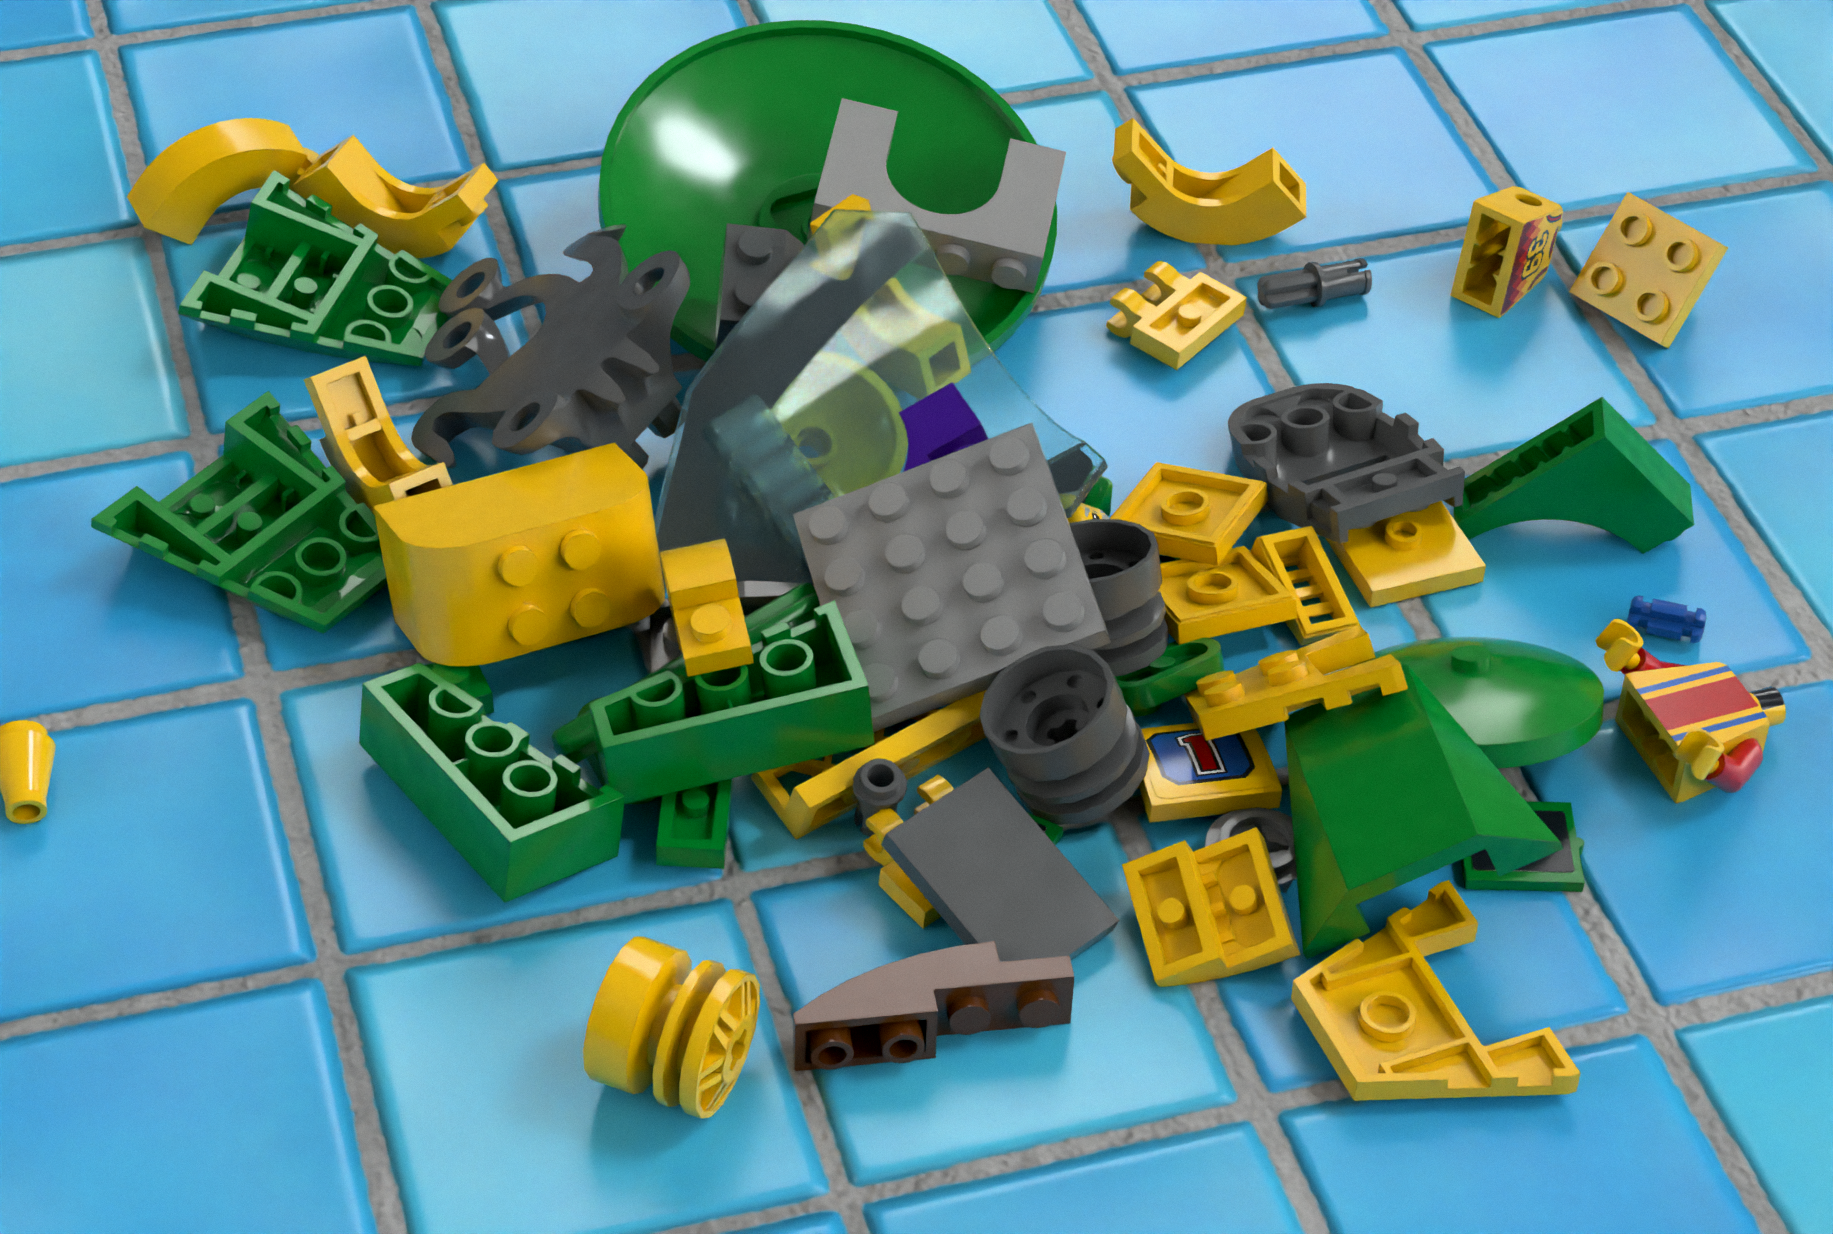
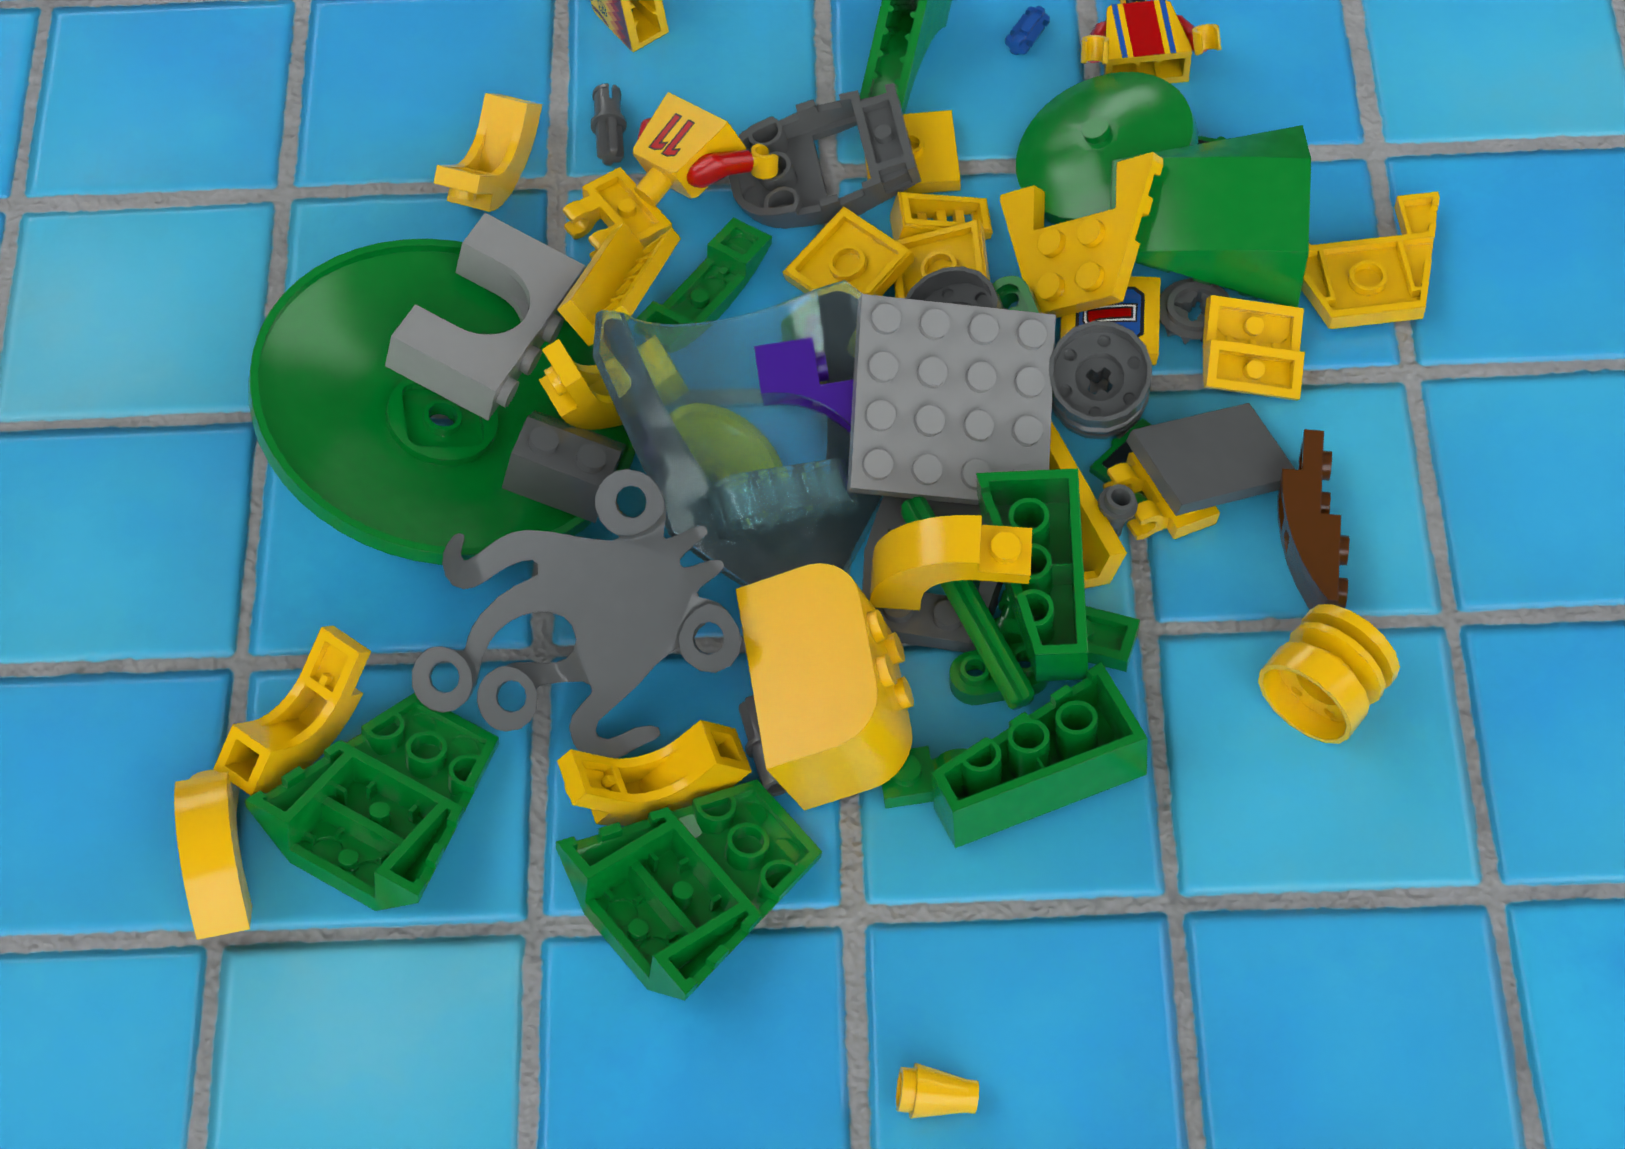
camera: 70 degrees left, 15 degrees up
(1037, 285) = (615, 278): none -> yellow fence
(1098, 410) = (717, 281): none -> green slope
(1281, 326) = (692, 149): none -> yellow torso

